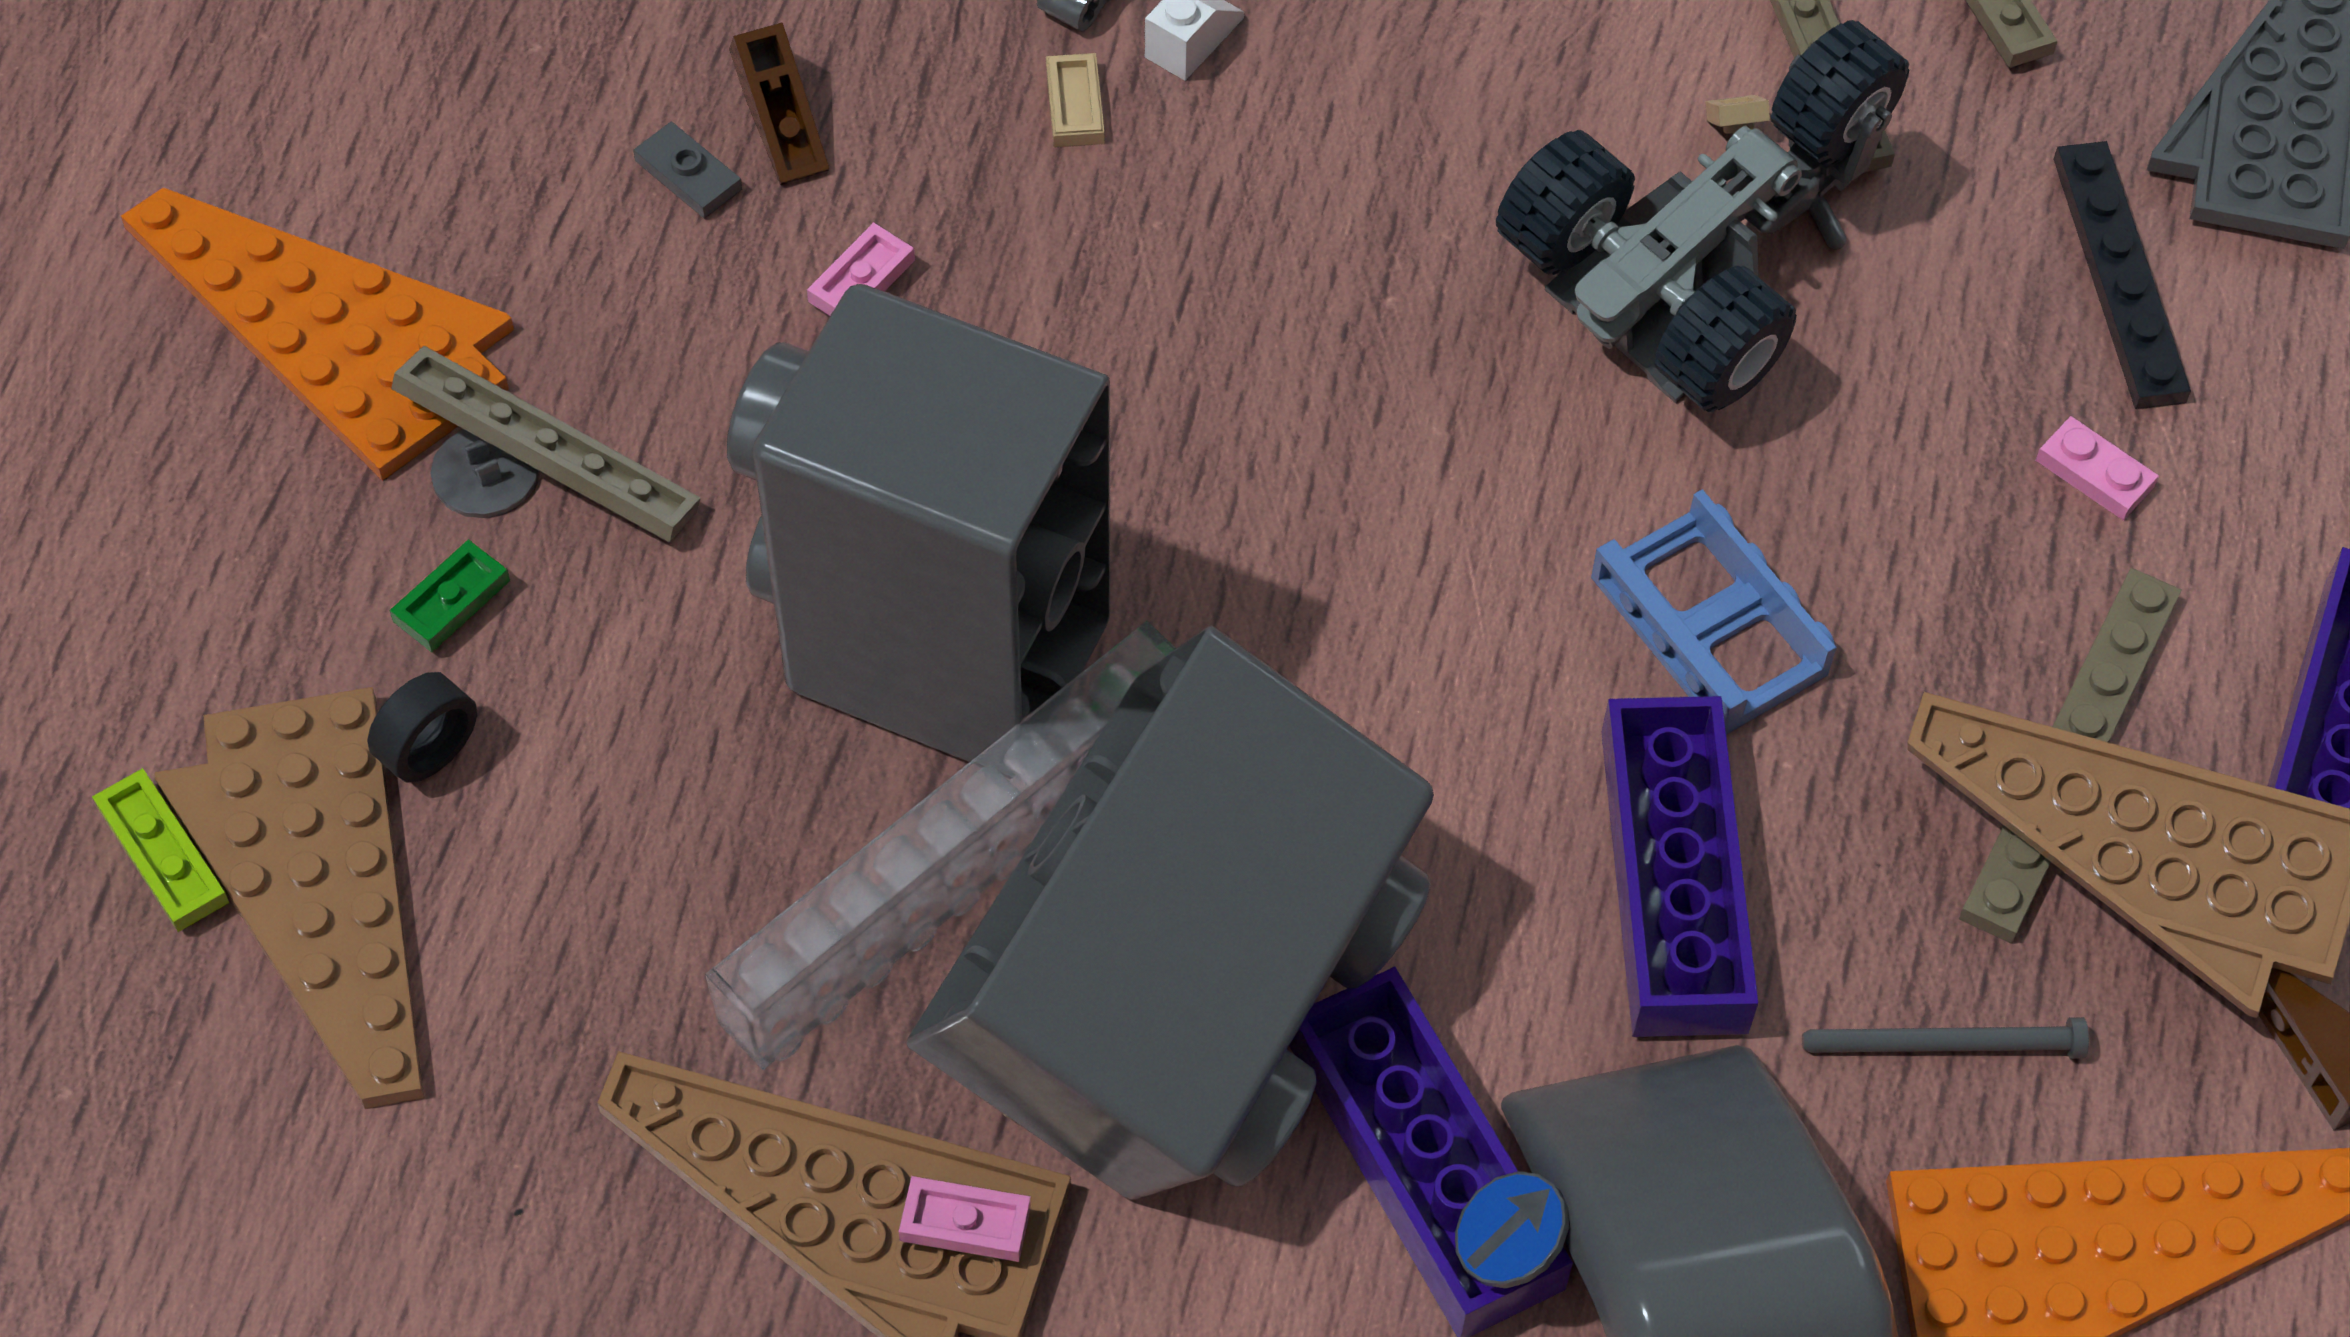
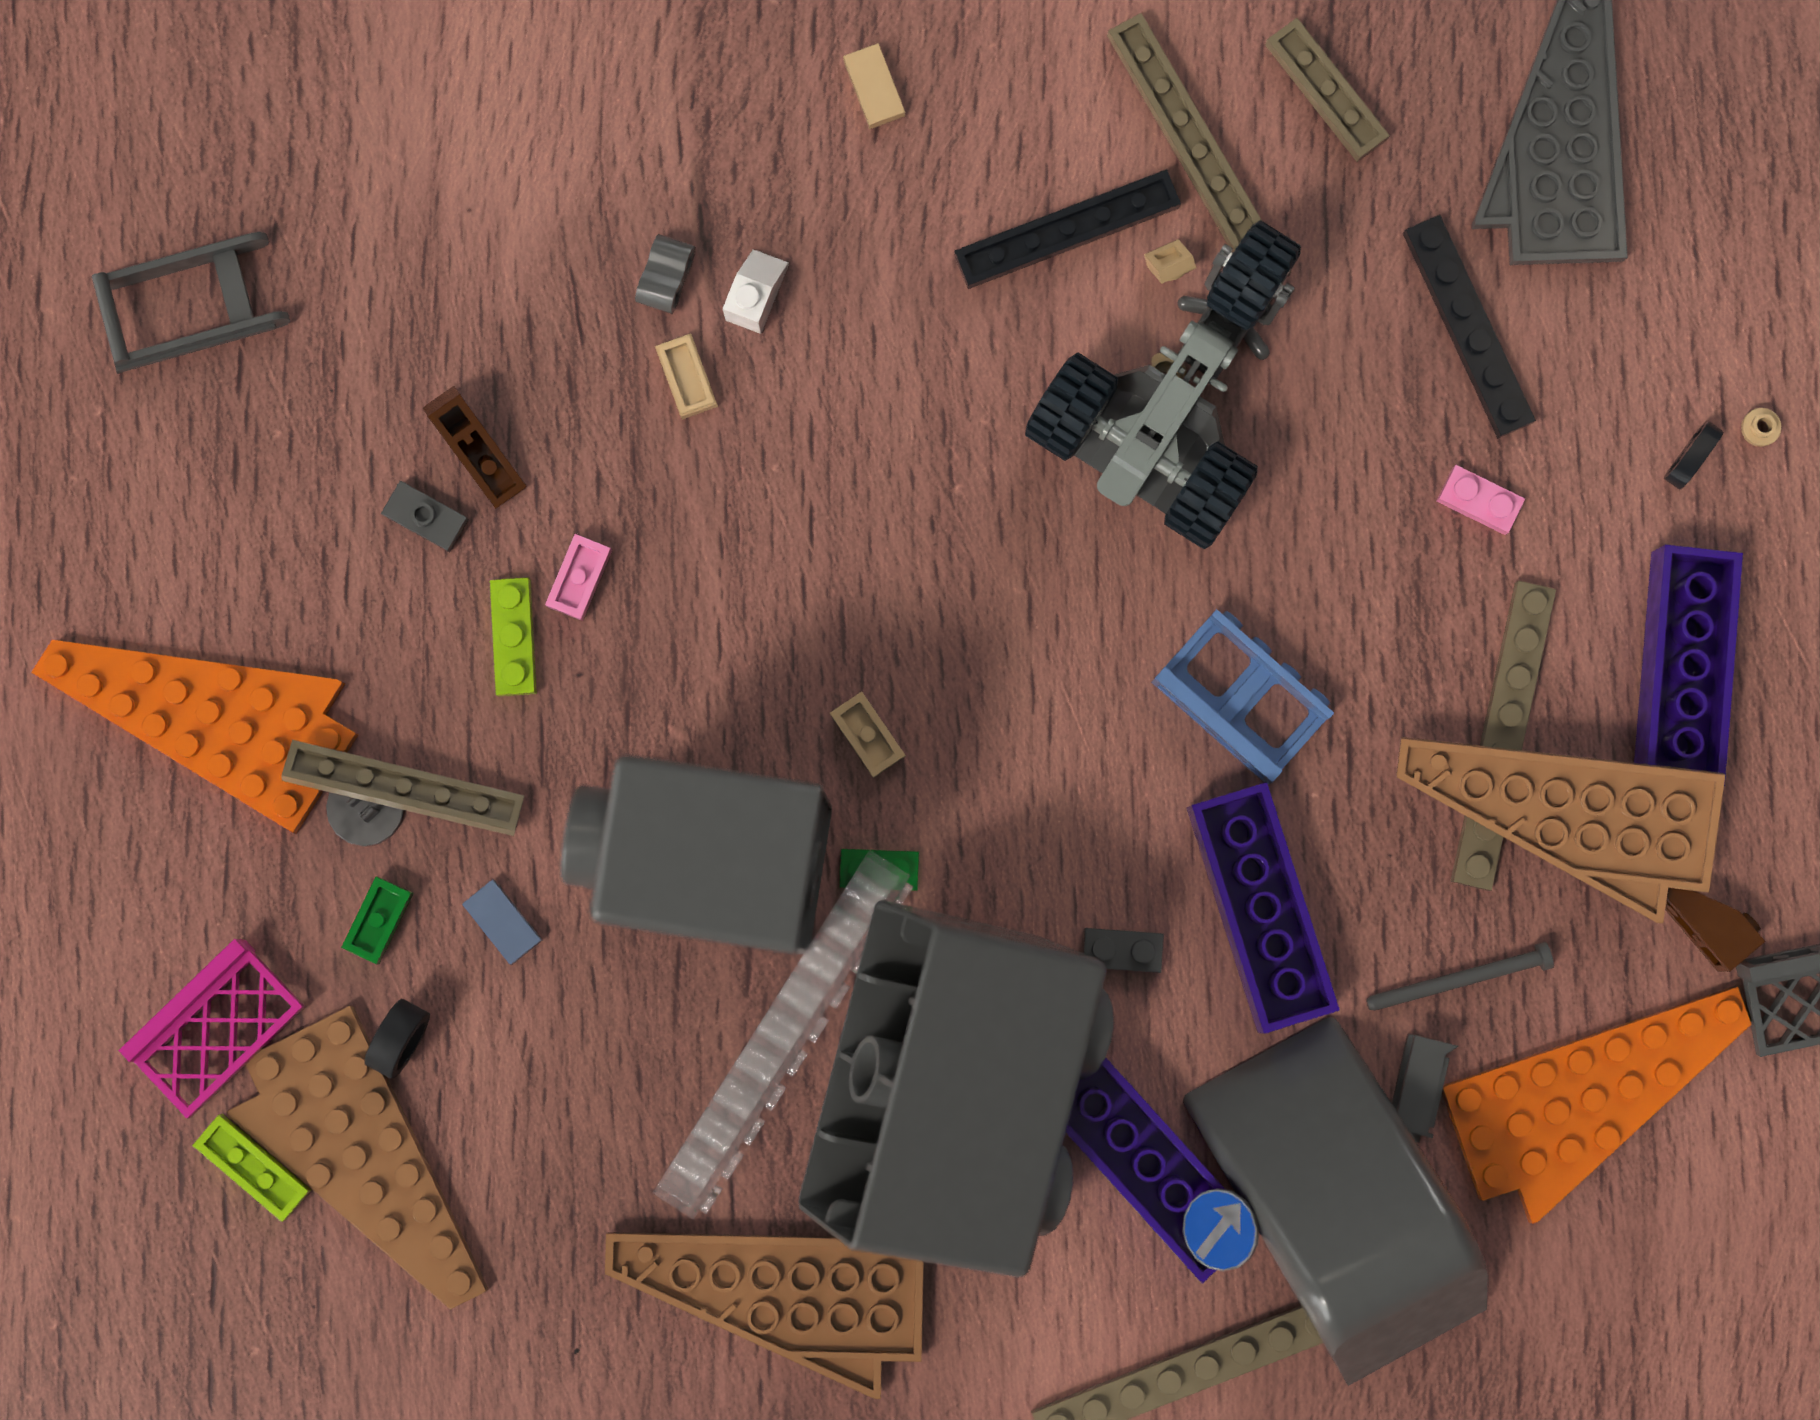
camera: 15 degrees left, 25 degrees up
(163, 630) = (188, 1003): none -> dark pink fence
(616, 642) = (502, 922): none -> sand blue tile
(750, 319) = (513, 637): none -> lime plate
(965, 1218) = (867, 1297): bright pink plate -> none
(1185, 538) = (867, 734): none -> tan plate
(1471, 885) = (1125, 949): none -> dark grey plate
(1612, 51) = (1067, 229): none -> black plate
(1868, 1138) = (1421, 1083): none -> dark grey window

